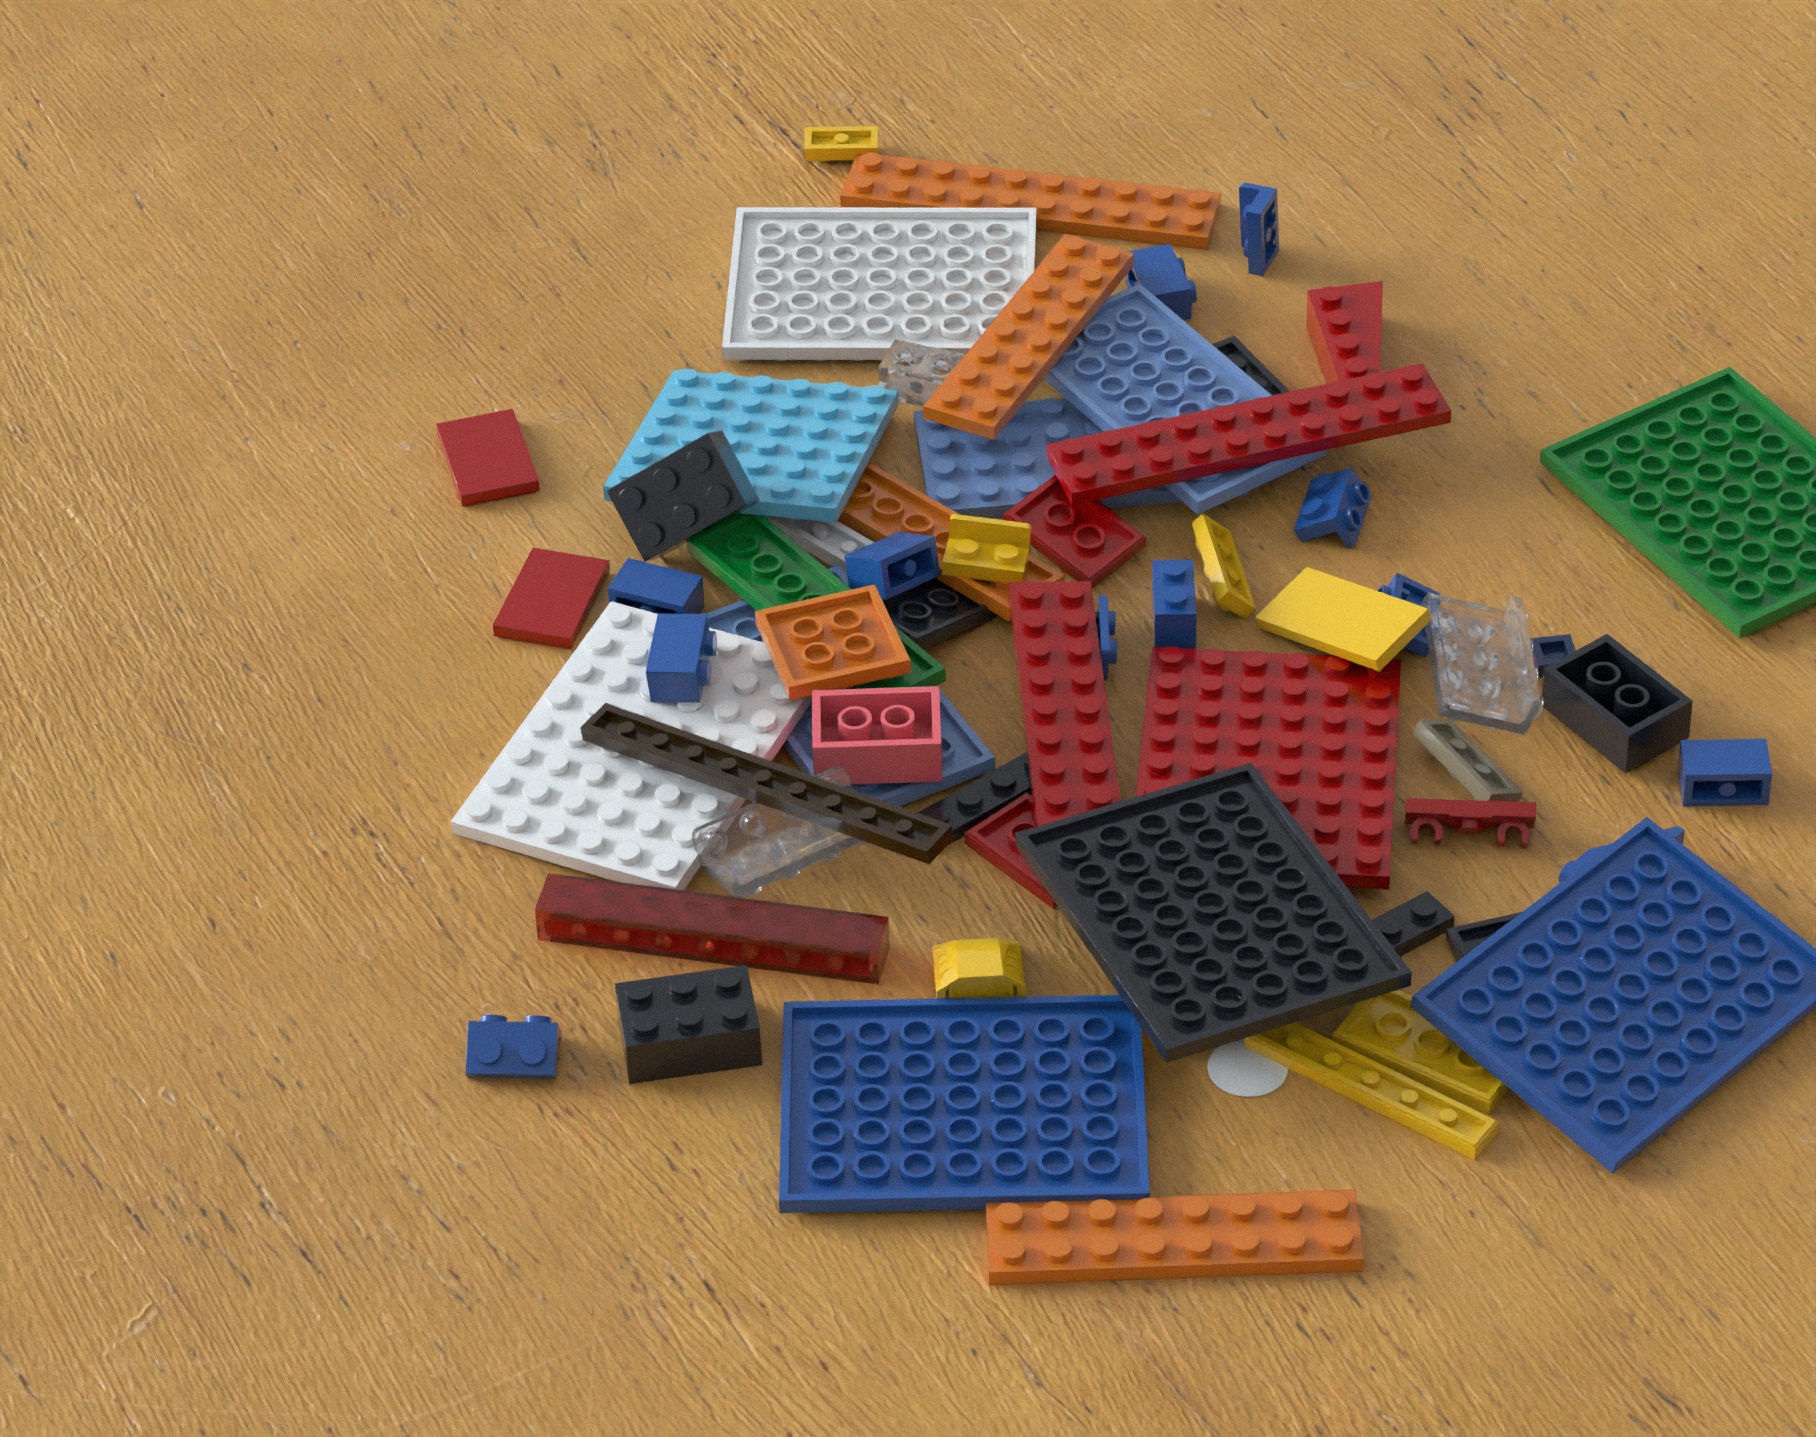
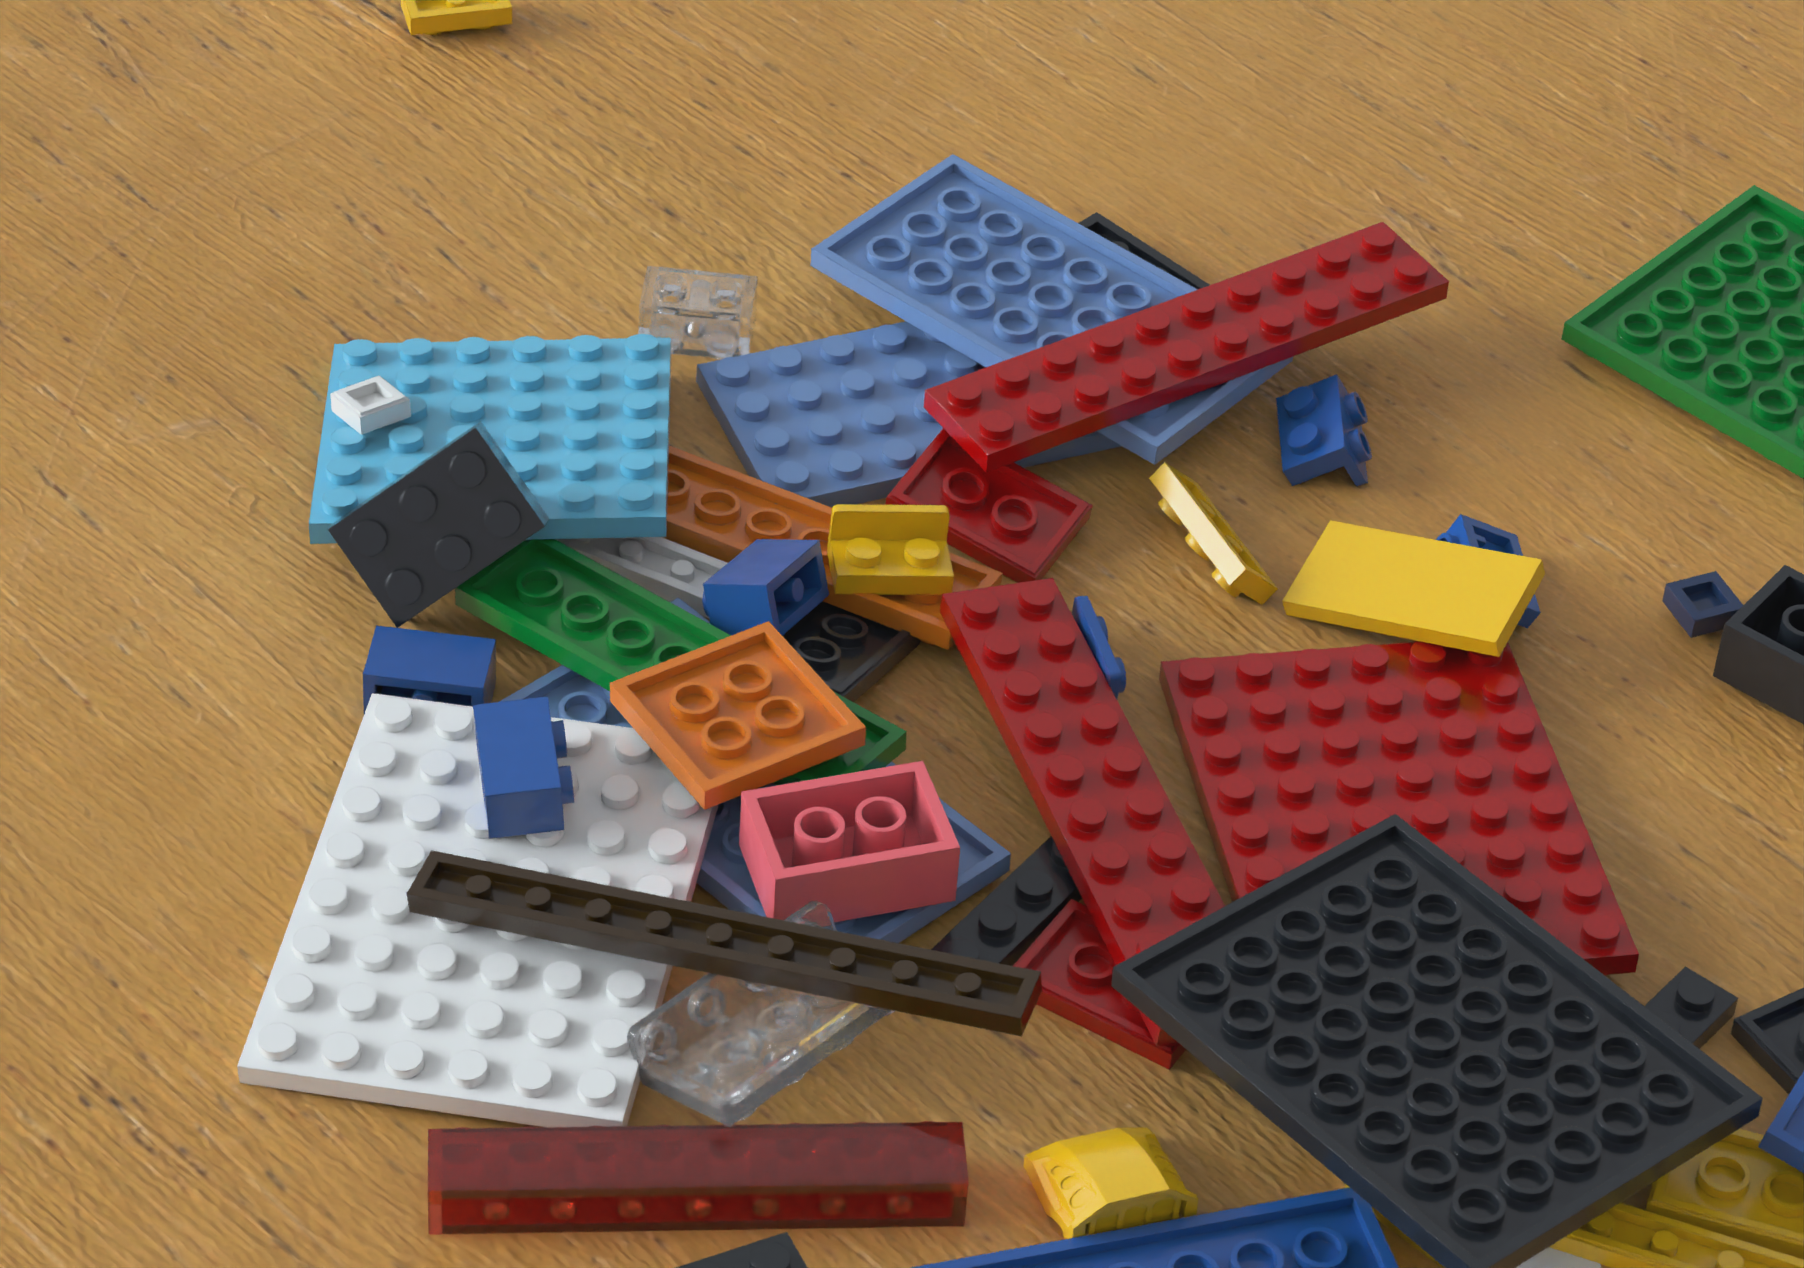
camera: 20 degrees left, 0 degrees up
(487, 457) = (102, 501): red tile -> none
(551, 598) = (269, 699): red tile -> none
(672, 412) = (370, 405): none -> white tile
(863, 276) = (579, 191): white plate -> none
(1028, 336) = (834, 244): orange plate -> none
(1061, 202) = (740, 58): orange plate -> none
(1164, 277) = (967, 133): blue brick -> none
(1174, 603) = (1171, 596): blue brick -> none
(1259, 226) = (1073, 59): blue bracket -> none
(1346, 329) = (1246, 194): red wedge -> none
(1466, 761) = (1659, 773): dark tan plate -> none
(1470, 817) = (1698, 852): red plate -> none
(1483, 663) = (1627, 627): clear bracket -> none

